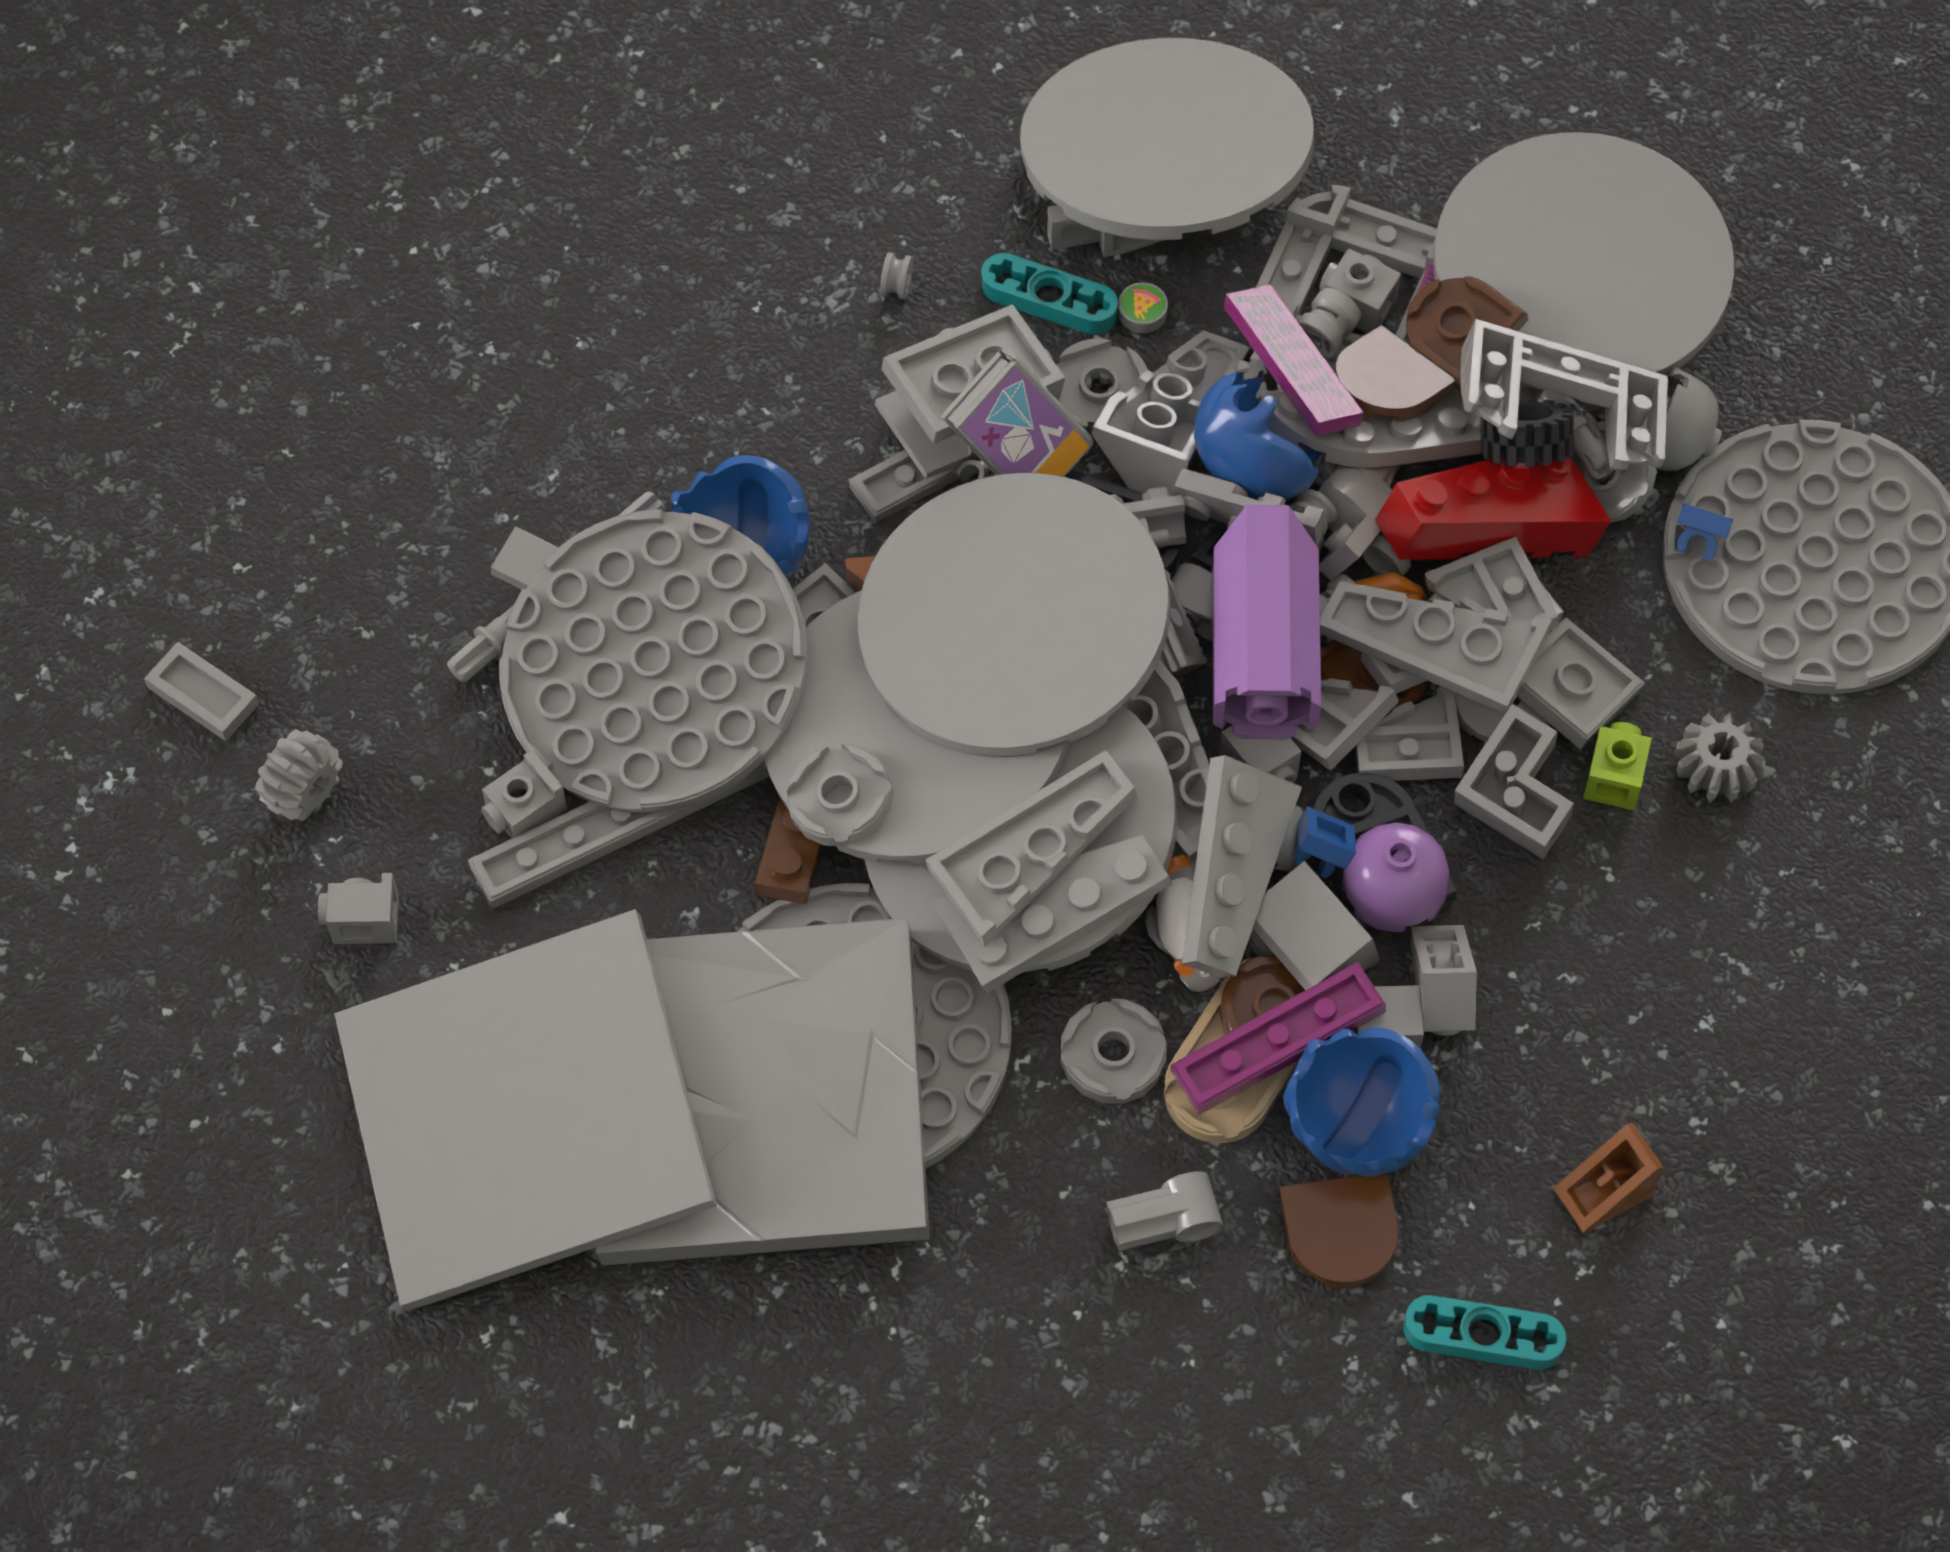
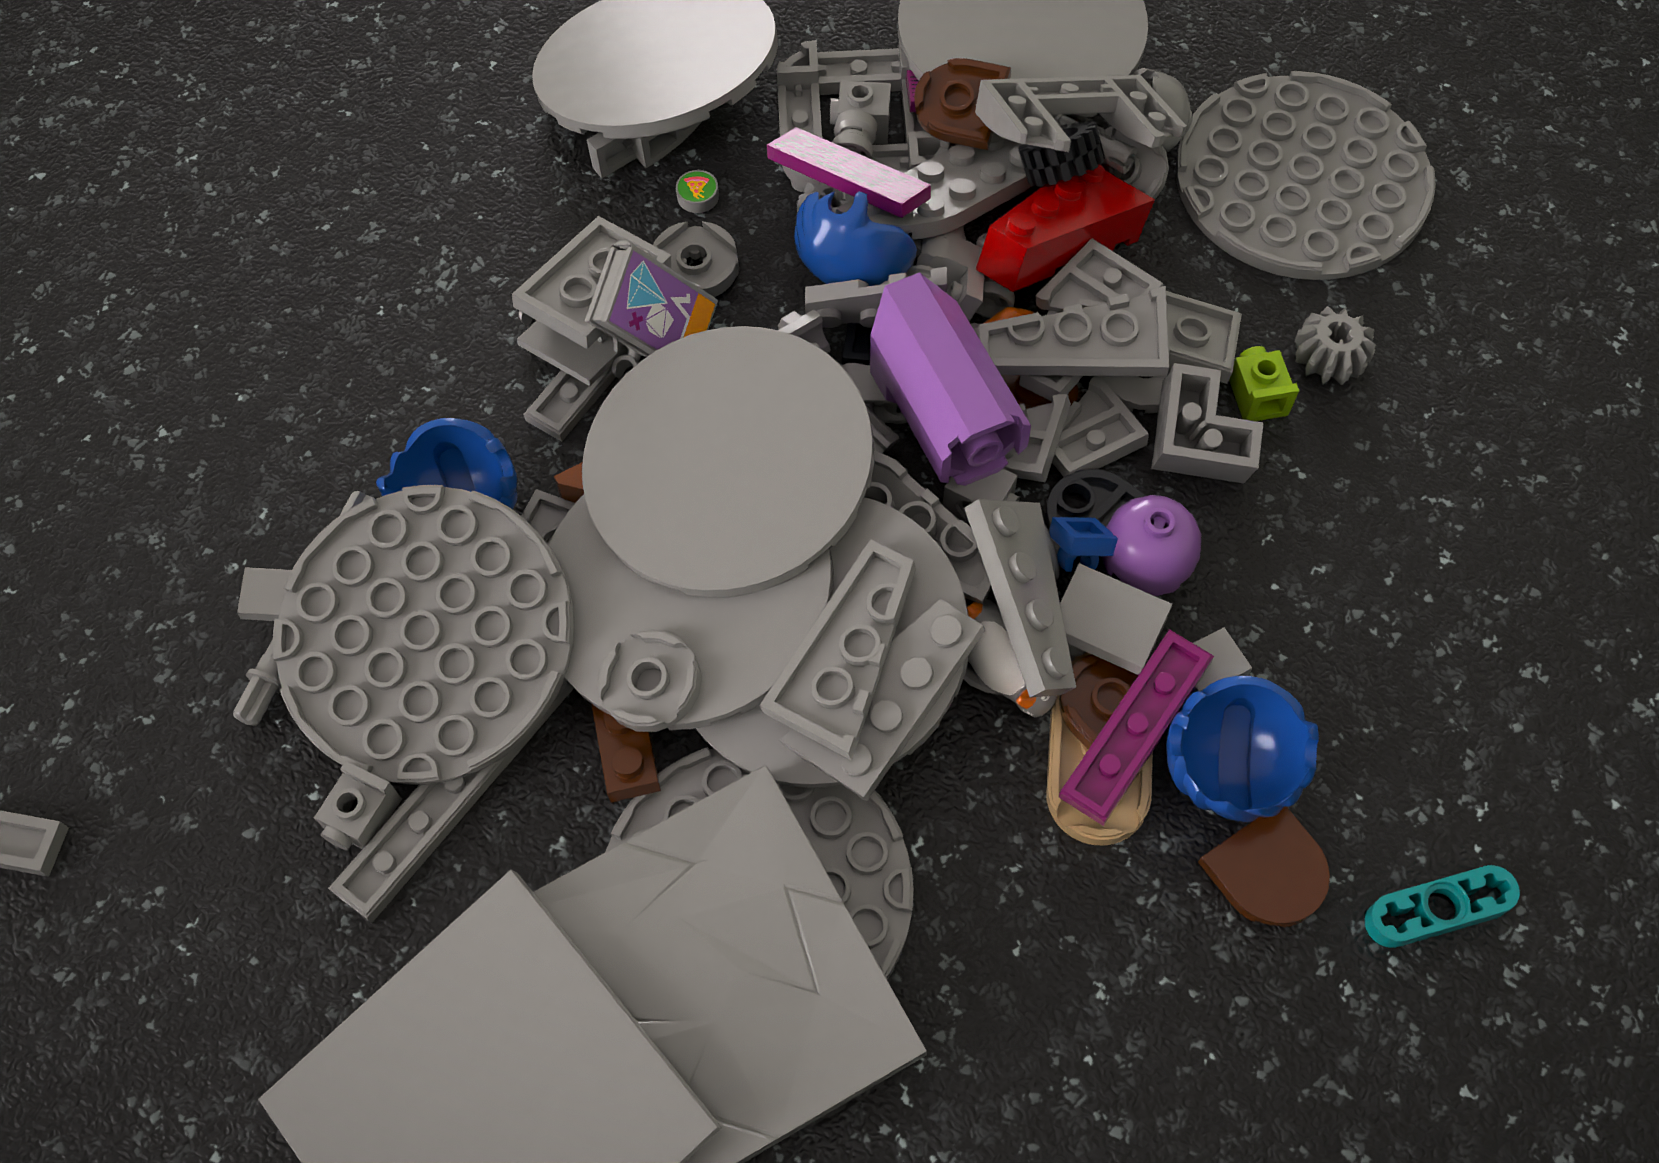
camera: 25 degrees left, 0 degrees up
(298, 775) = (128, 881): light grey gear -> none
(361, 911) = (243, 984): light grey brick -> none
(896, 275) = (487, 240): light grey bush -> none
(1059, 311) = (632, 219): teal beam -> none
(1113, 1080) = (992, 829): light grey tile -> none
(1152, 424) = (760, 263): light grey wedge -> none
(1180, 1209) = (1129, 921): light grey piece -> none
(1391, 376) = (931, 154): tile -> none
(1445, 978) = (1237, 604): light grey arch -> none
(1611, 1179) = (1467, 720): dark orange slope -> none
(1703, 524) = (1221, 175): blue tile -> none

